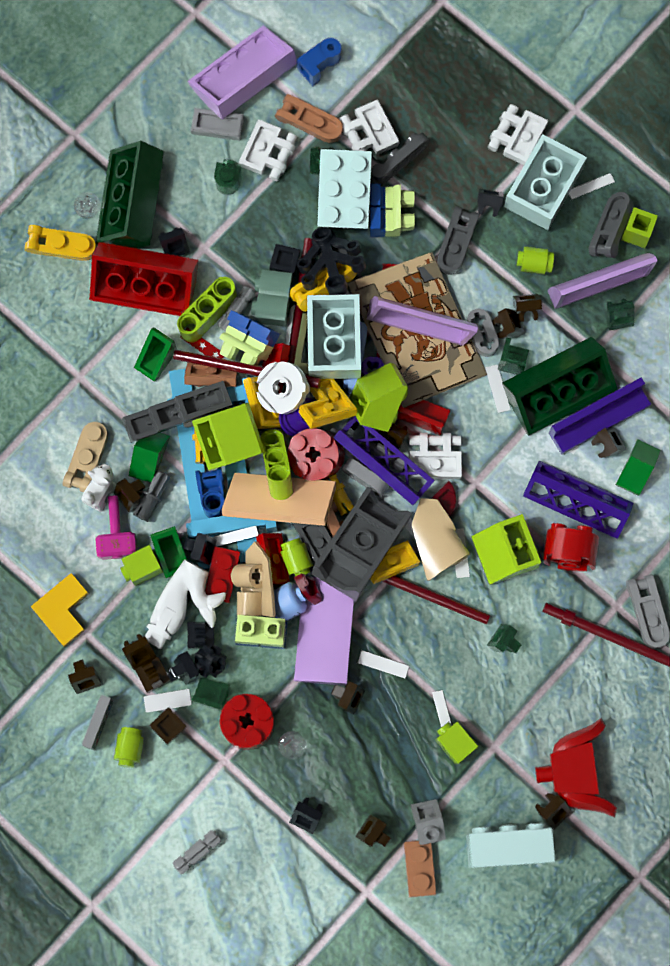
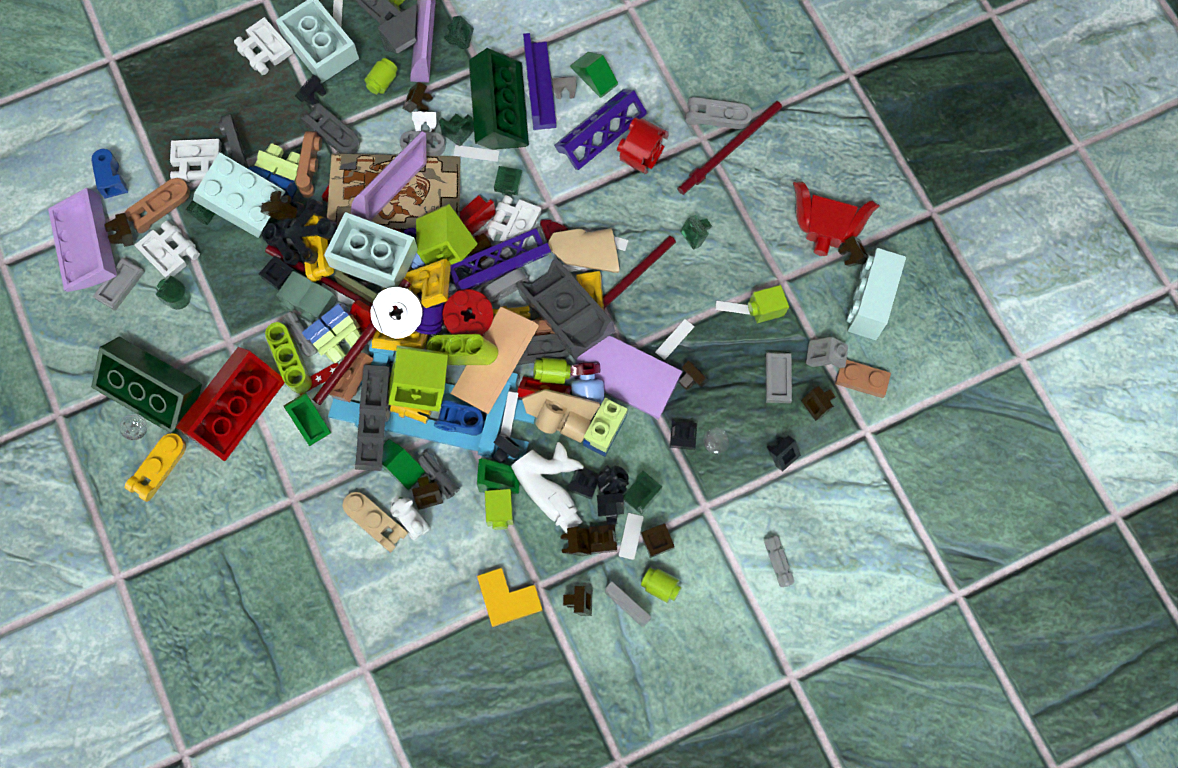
camera: 70 degrees left, 5 degrees down
(116, 544) = (468, 524): dark pink piece -> none
(174, 242) = (210, 362): black tile -> none
(220, 572) = (532, 438): red plate -> none
(241, 707) = (681, 455): red brick -> none
(273, 98) = (123, 233): none -> dark brown tile
(286, 711) = (683, 435): none -> black tile
(344, 231) = (279, 207): none -> dark brown tile
(384, 782) = (778, 377): none -> light grey tile
(411, 235) = (308, 163): none -> nougat plate
(475, 432) = (508, 181): none -> clear green tile
(506, 549) = (621, 197): lime slope -> none
(586, 256) = (399, 31): none -> dark grey slope

